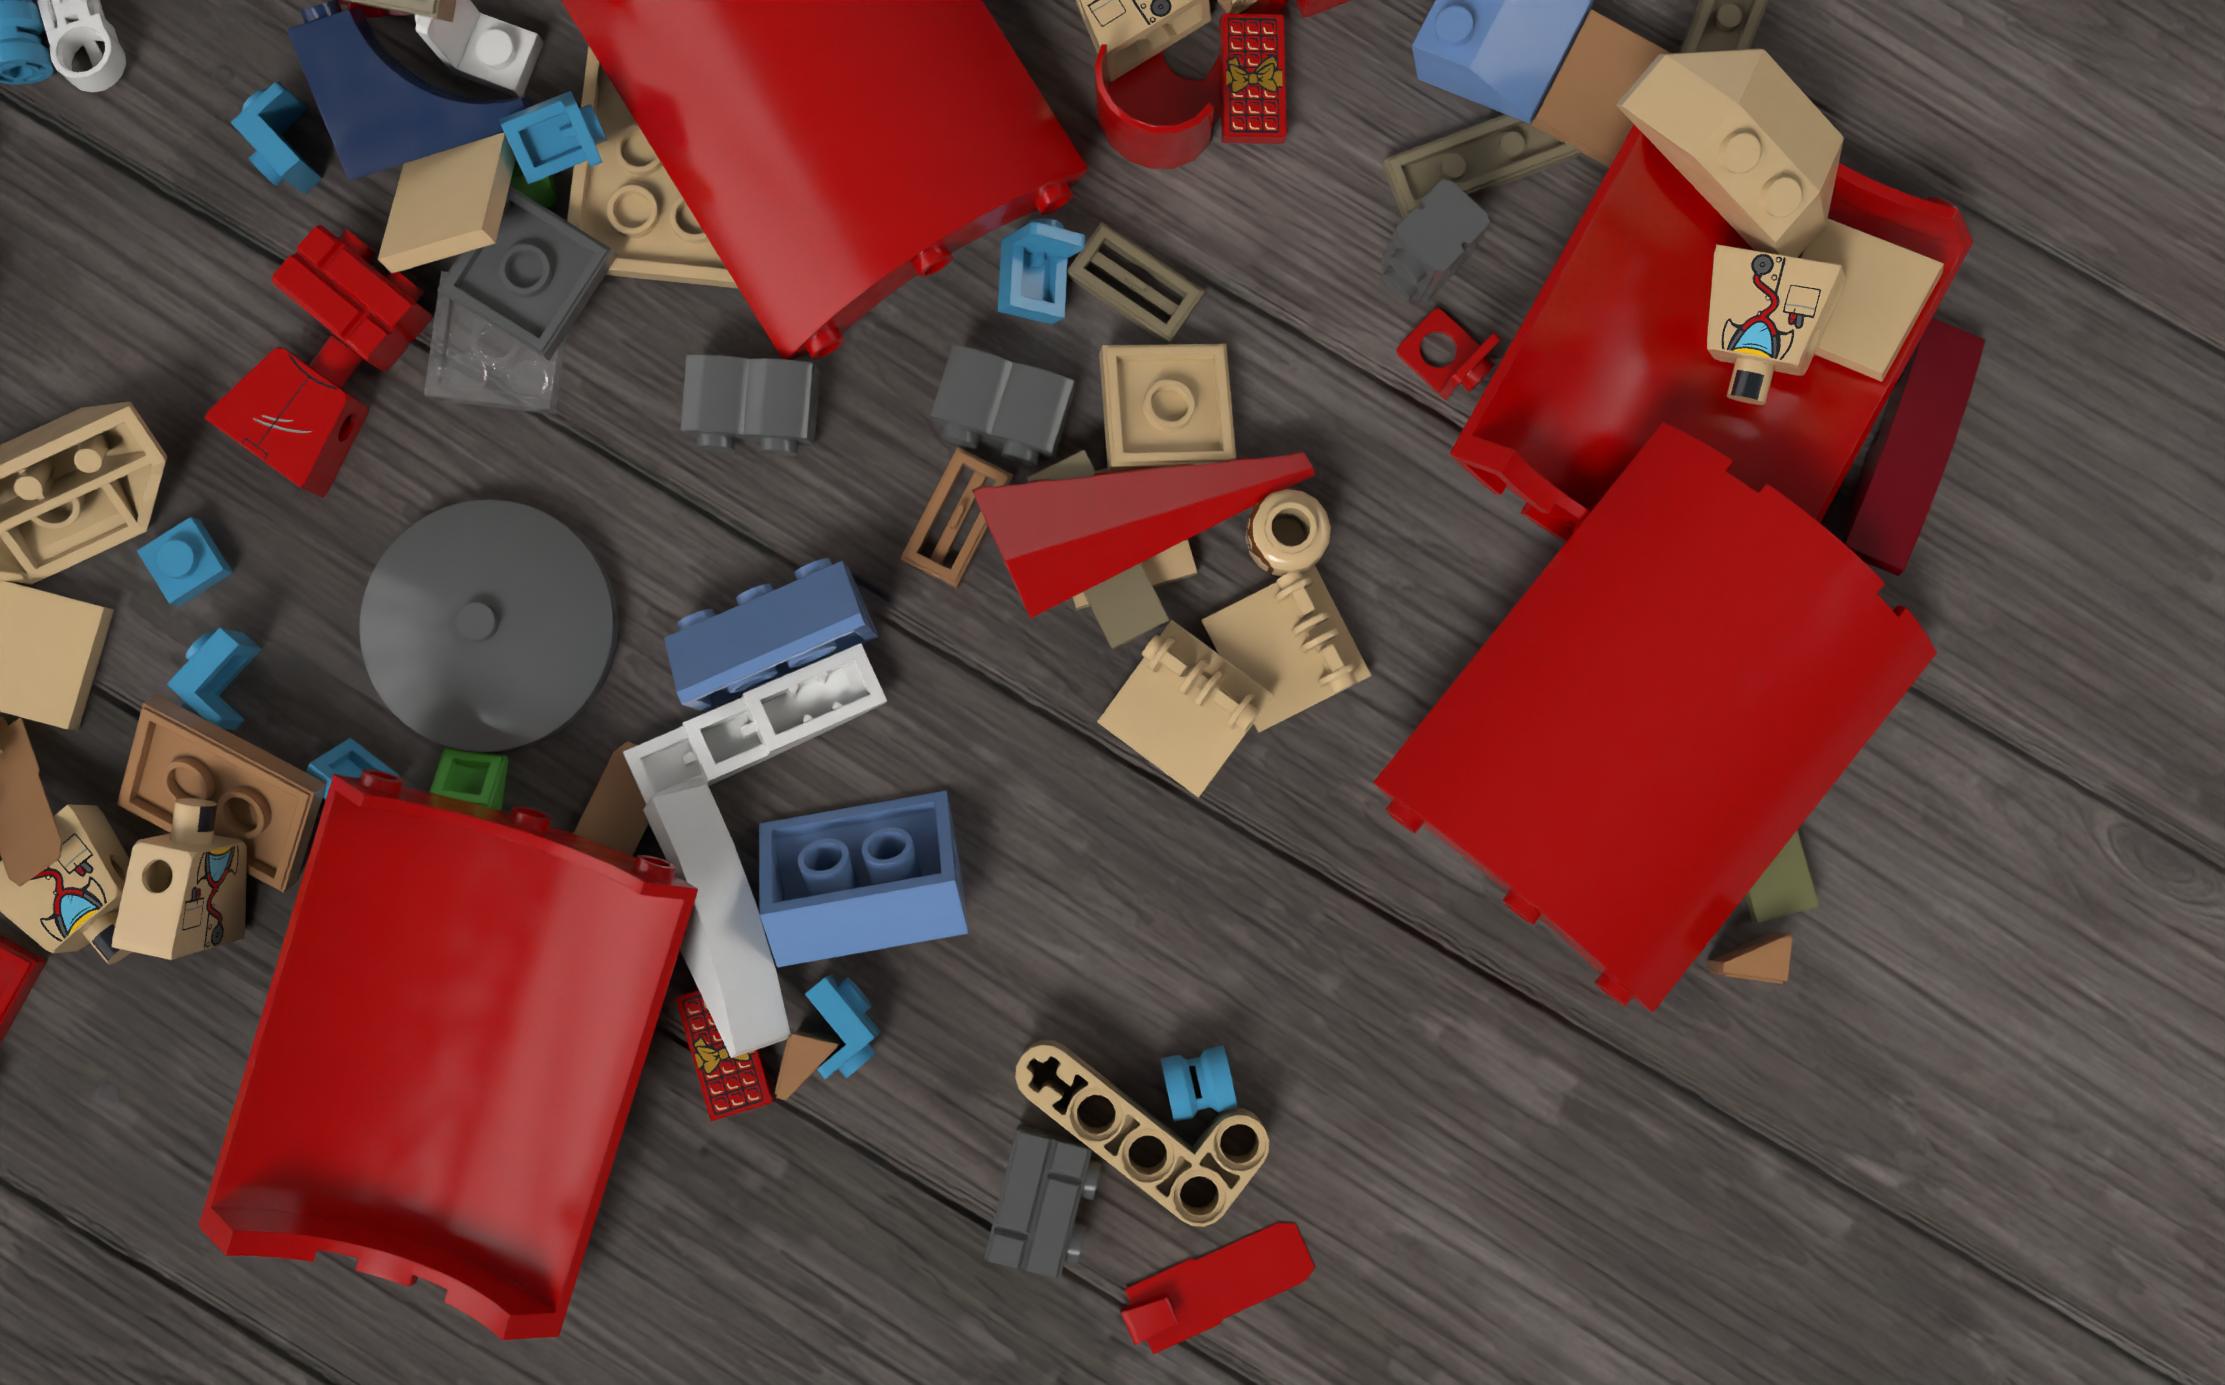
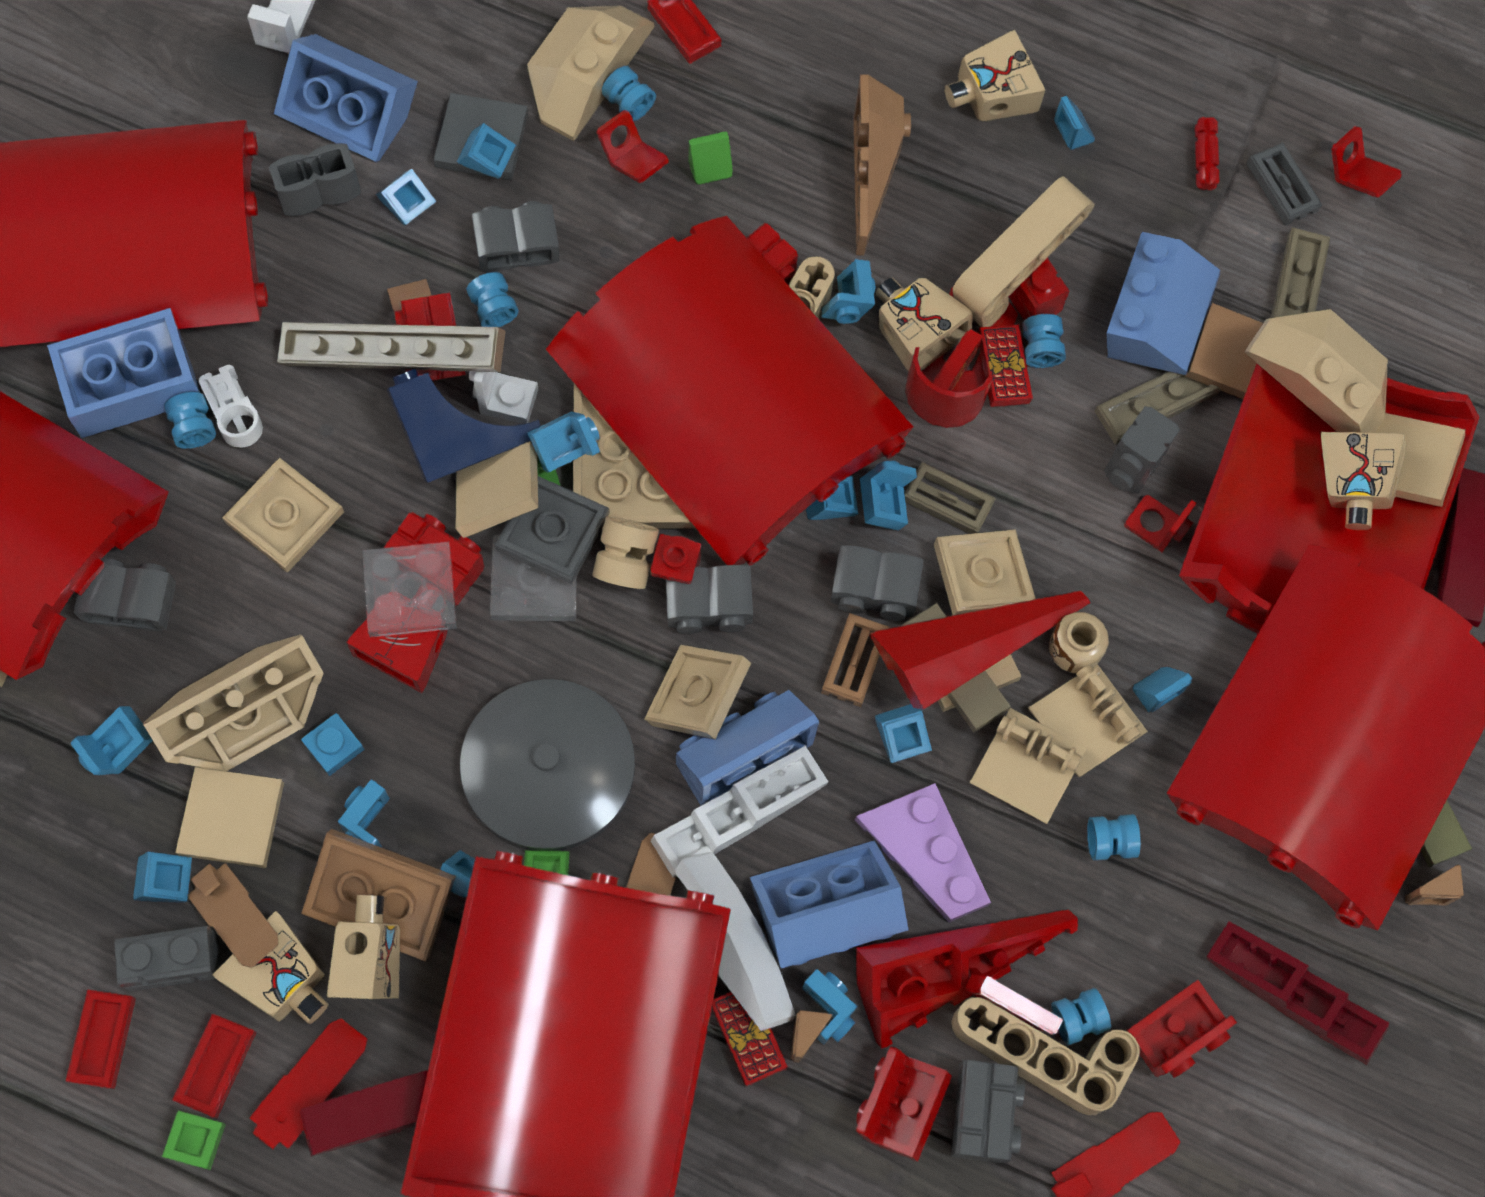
camera: 15 degrees left, 15 degrees down
(108, 1044) = (308, 1083): none -> red piece
(144, 204) = (283, 515): none -> tan tile
(162, 1103) = (364, 1114): none -> dark red slope
(261, 123) = (370, 470): dark azure bracket -> none
(299, 347) = (409, 589): none -> clear plate
(627, 330) = (625, 552): none -> tan wheel
(704, 340) = (676, 558): none -> red bracket
(711, 546) = (697, 691): none -> tan tile
(924, 1175) = (902, 1104): none -> red bracket
(968, 272) = (838, 505): none -> dark azure slope
(980, 993) = (919, 974): none -> red wedge
(1010, 638) = (903, 732): none -> dark azure slope
(1021, 814) = (927, 846): none -> lavender wing
(1101, 1058) = (1014, 1003): none -> tile
(1173, 73) = (958, 361): none -> red tile
(1291, 829) = (1113, 837): none -> dark azure wheel
(1318, 45) = (1044, 341): none -> dark azure wheel
(1338, 1121) = (1180, 1030): none -> red bracket
(1403, 610) = (1161, 687): none -> dark azure slope
(1519, 1084) = (1297, 992): none -> dark red slope

